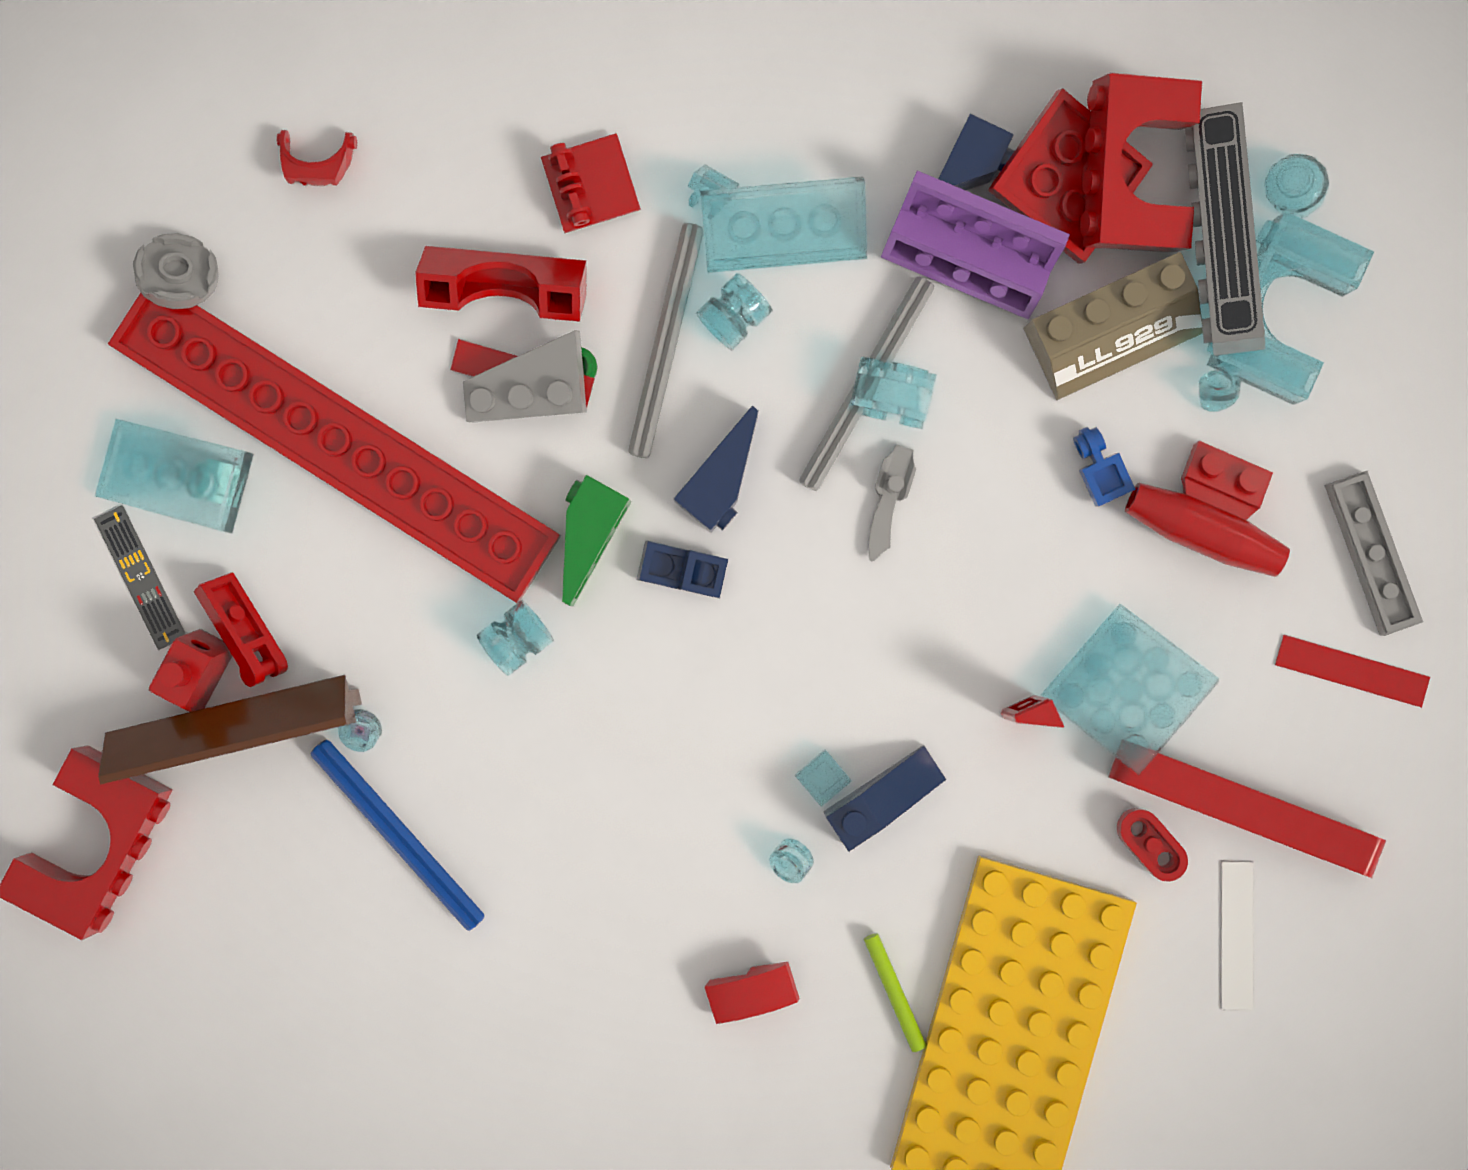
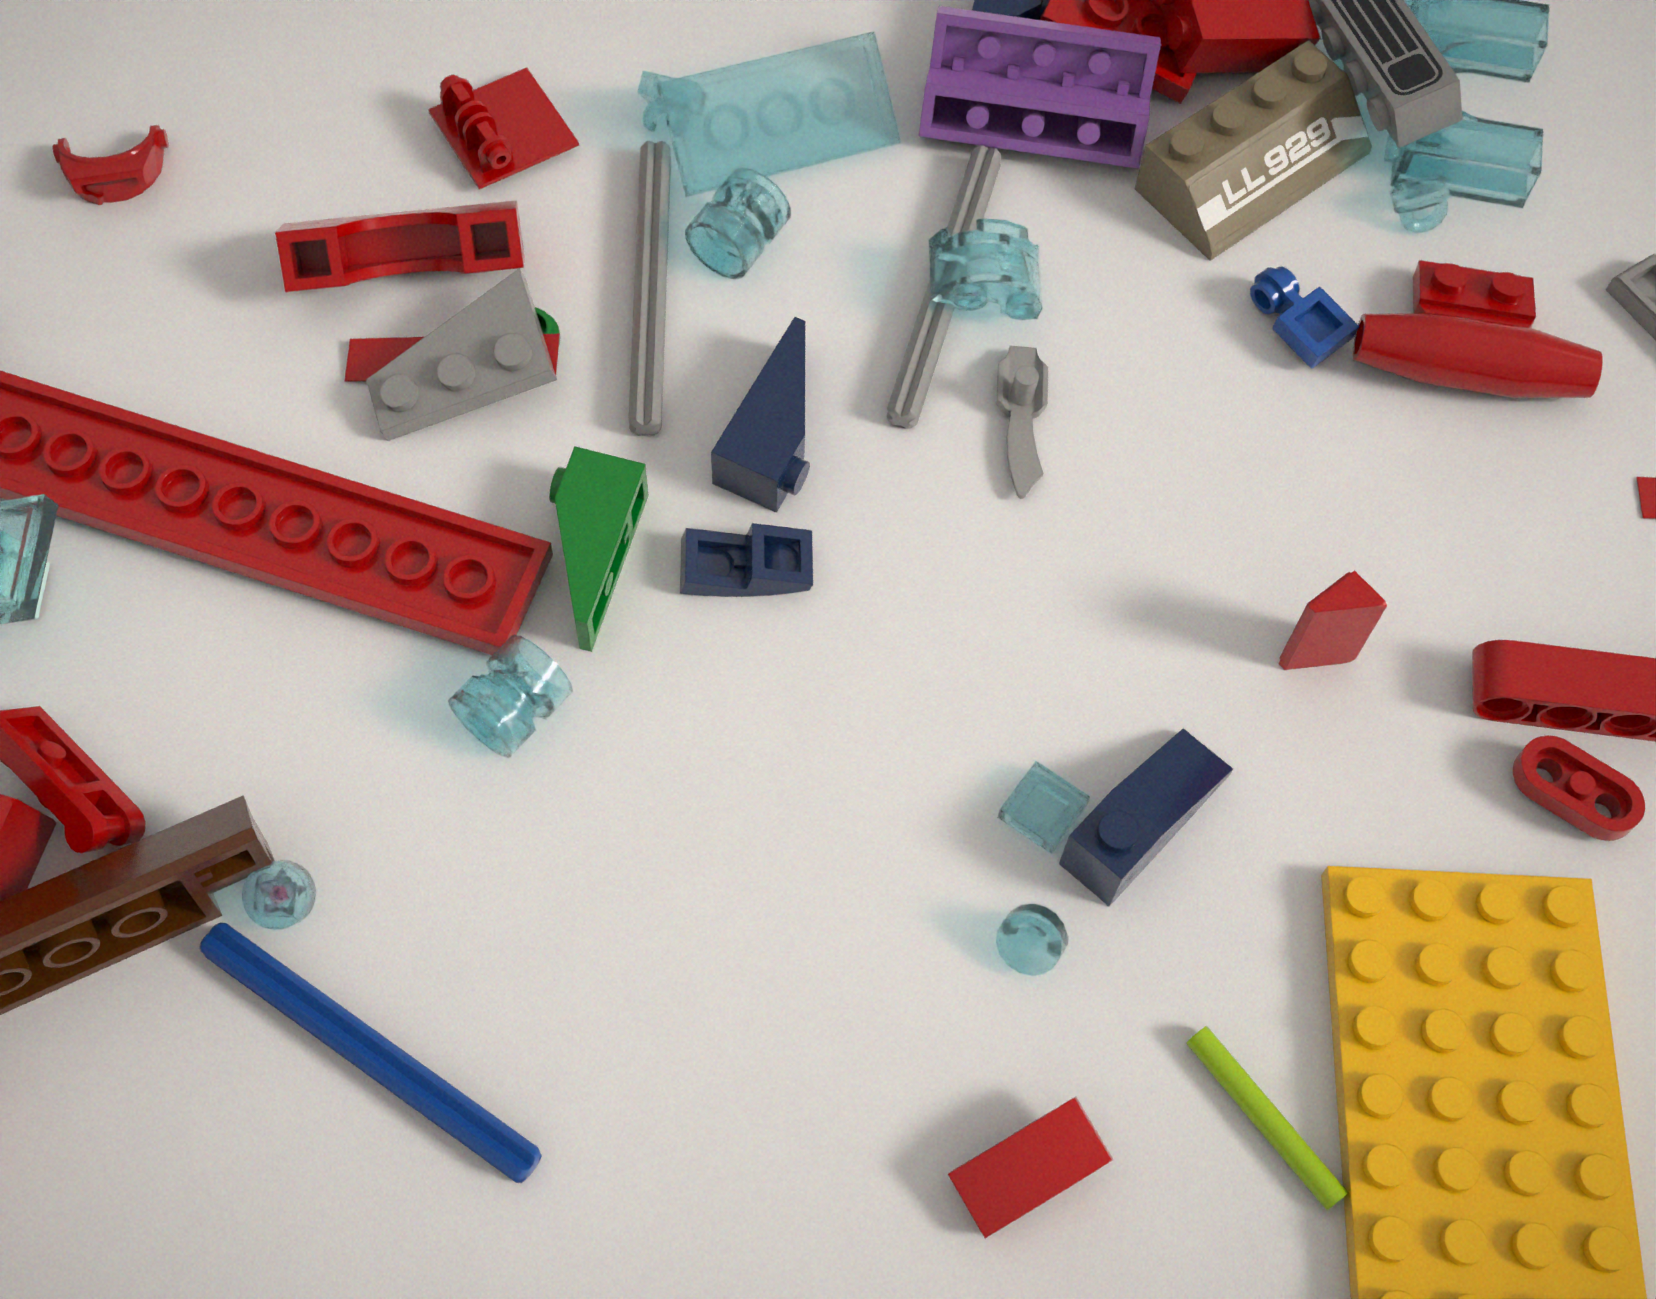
camera: 20 degrees left, 25 degrees down
(1130, 688) = (1464, 566): clear light blue plate -> none

